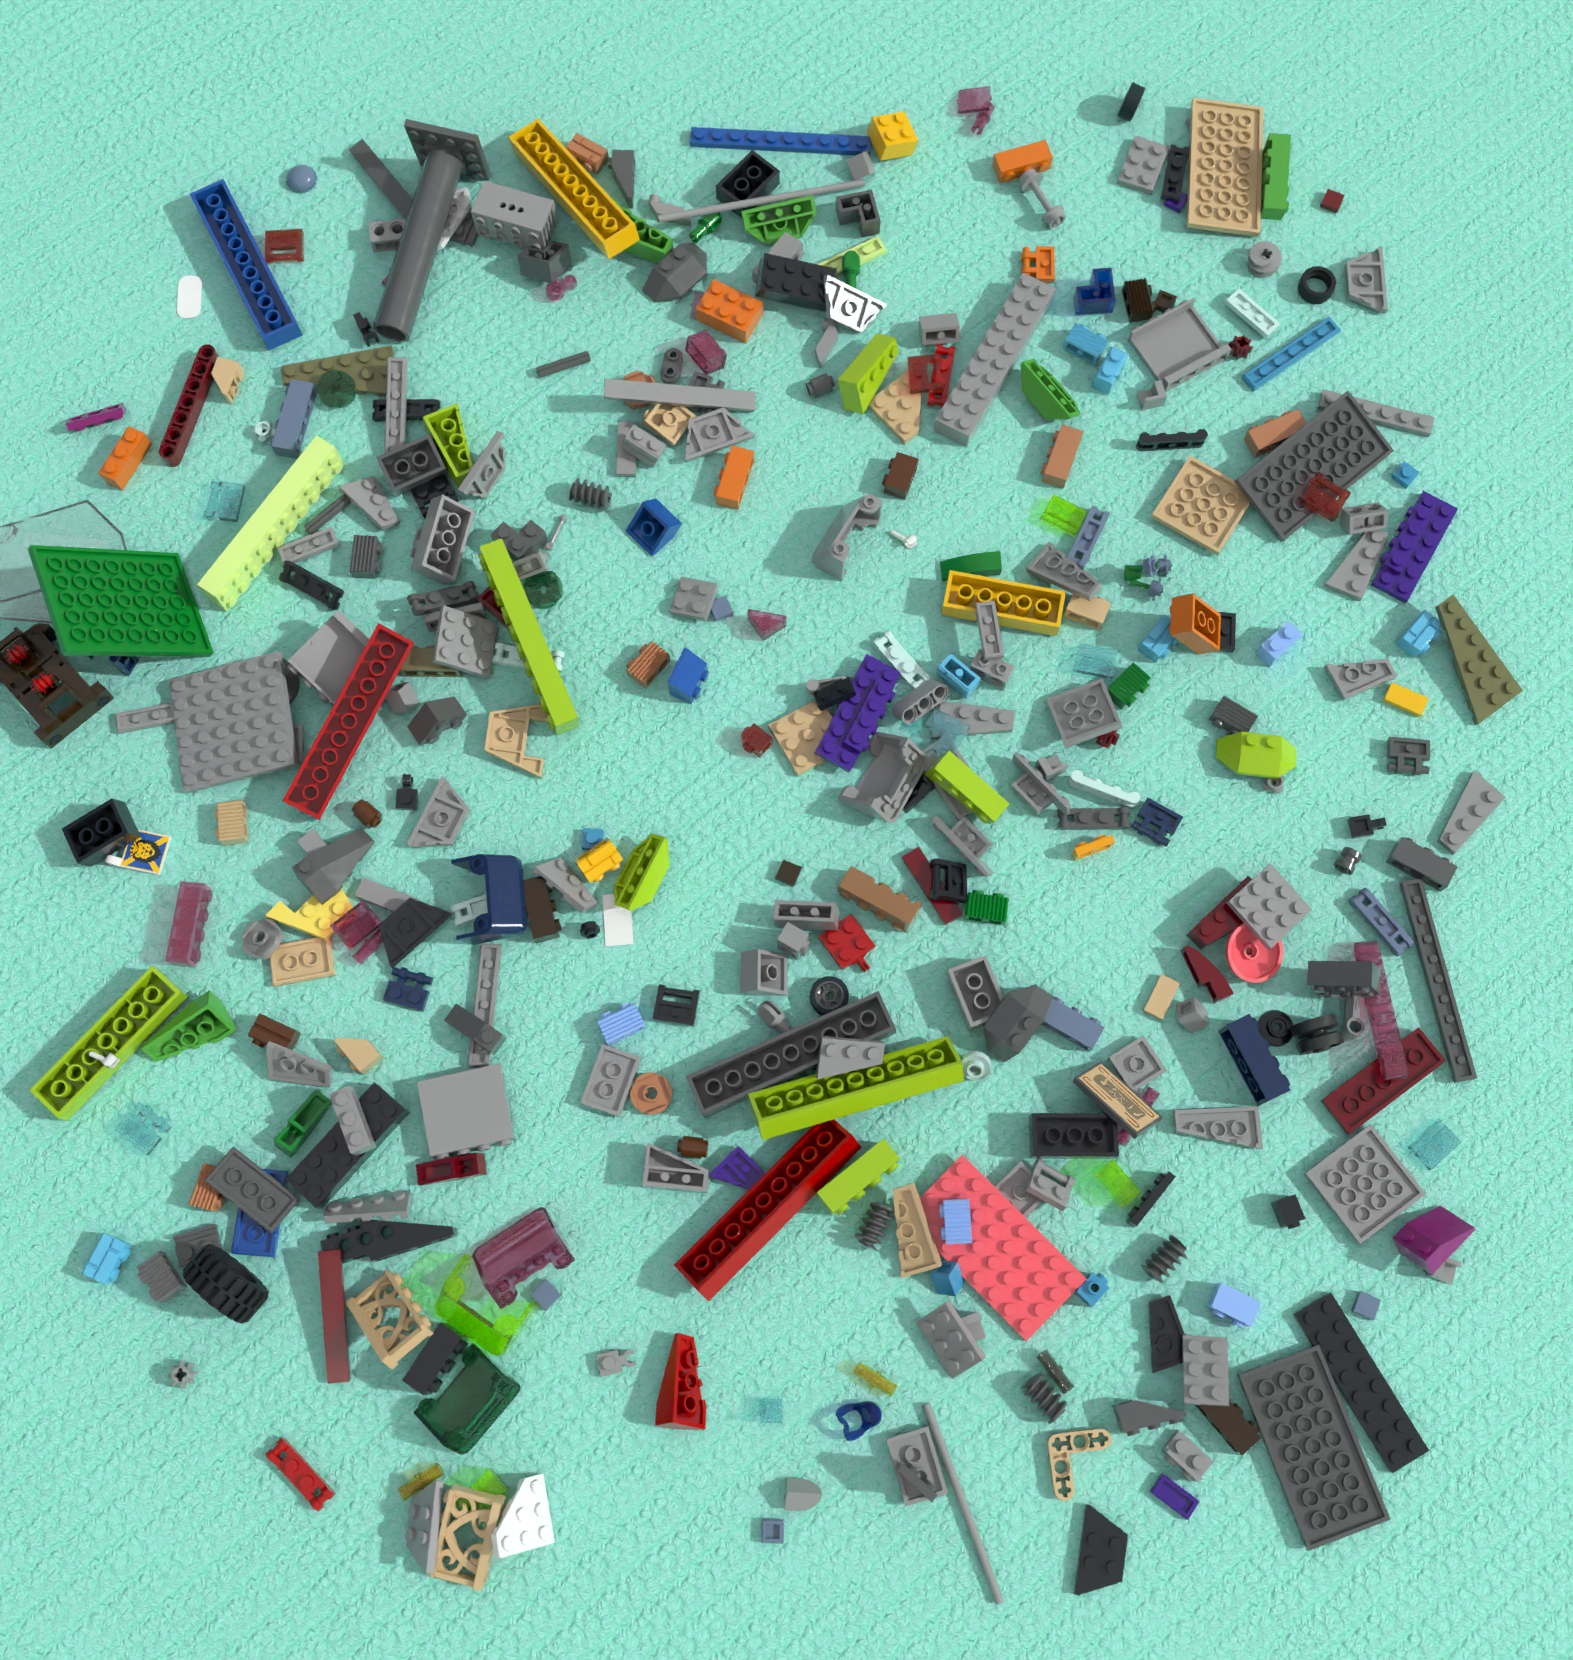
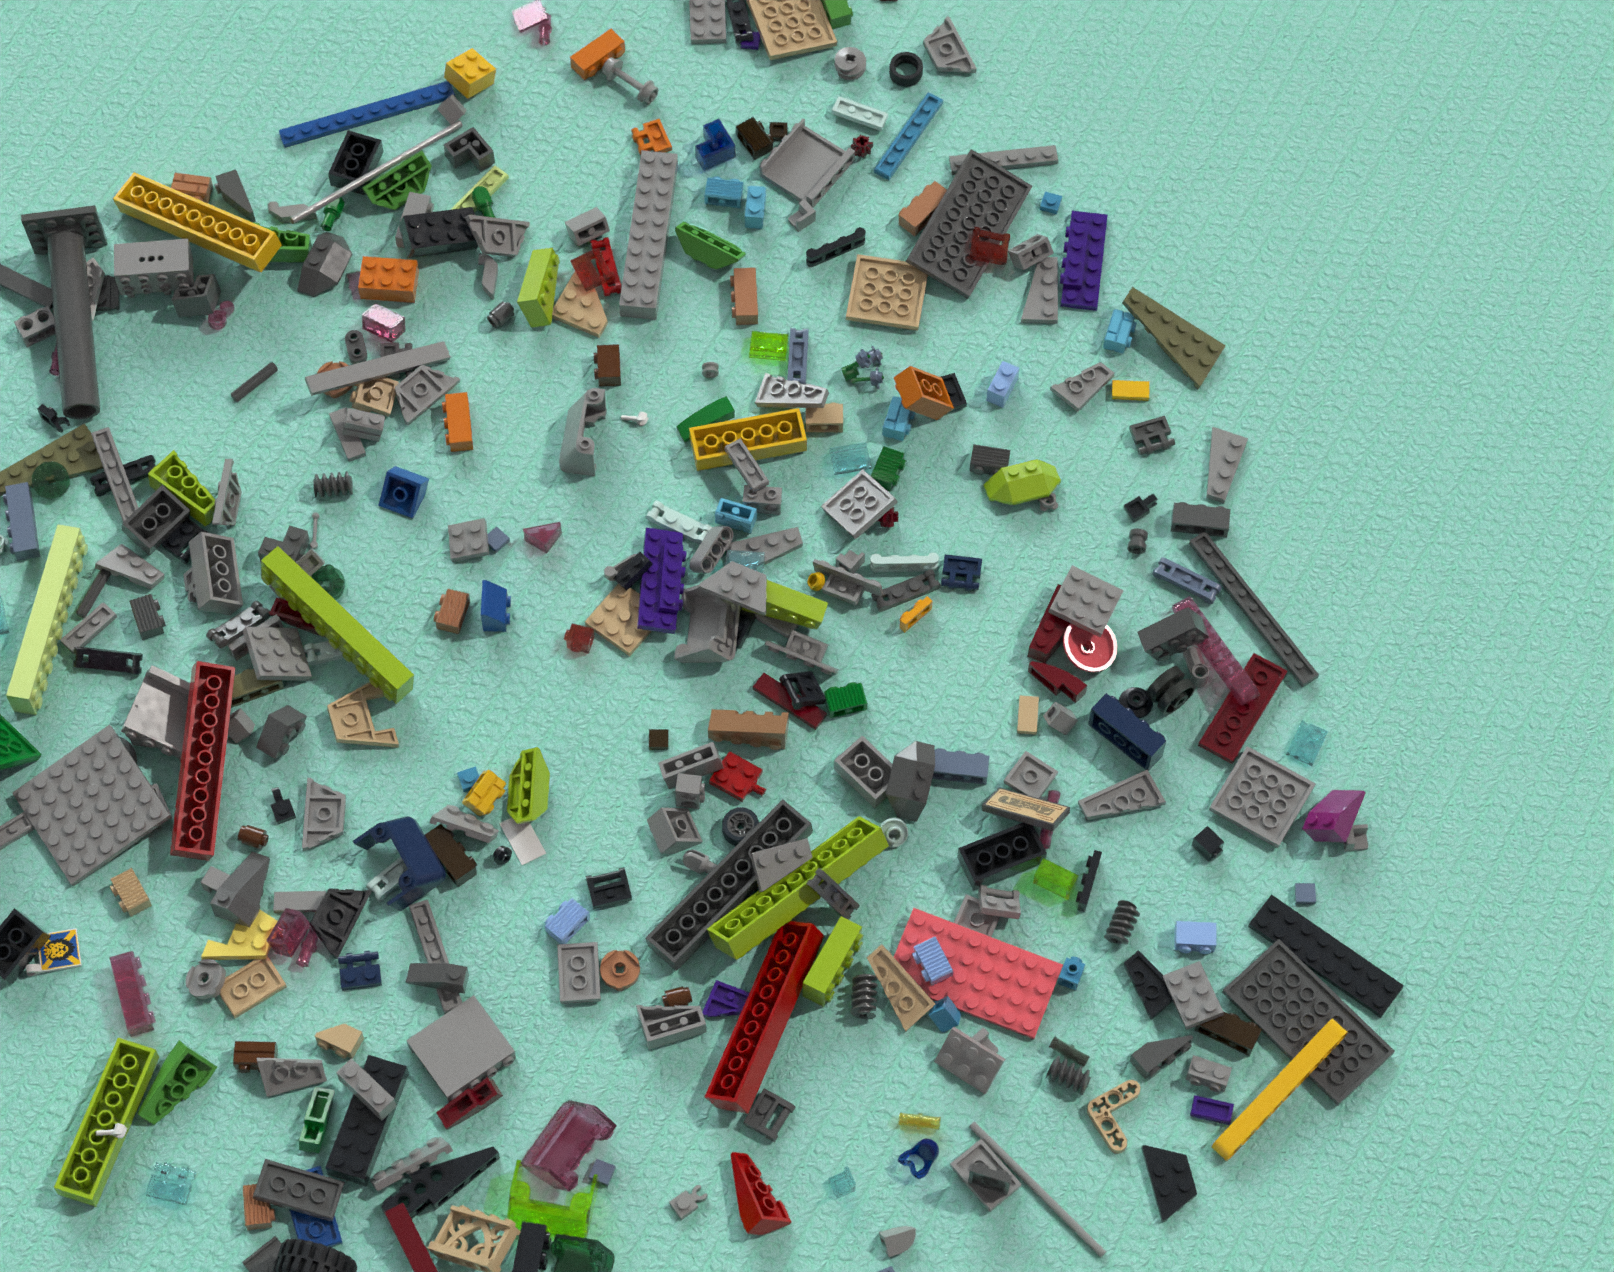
camera: 25 degrees left, 10 degrees down
(725, 1302) = (764, 1110): none -> dark grey plate
(886, 1110) = (833, 894): none -> dark grey plate
(927, 755) = (739, 586): none -> light grey wing
(996, 517) = (710, 370): none -> light grey bush
(1009, 774) = (816, 581): none -> yellow plate
(1253, 1510) = (1279, 1089): none -> yellow beam

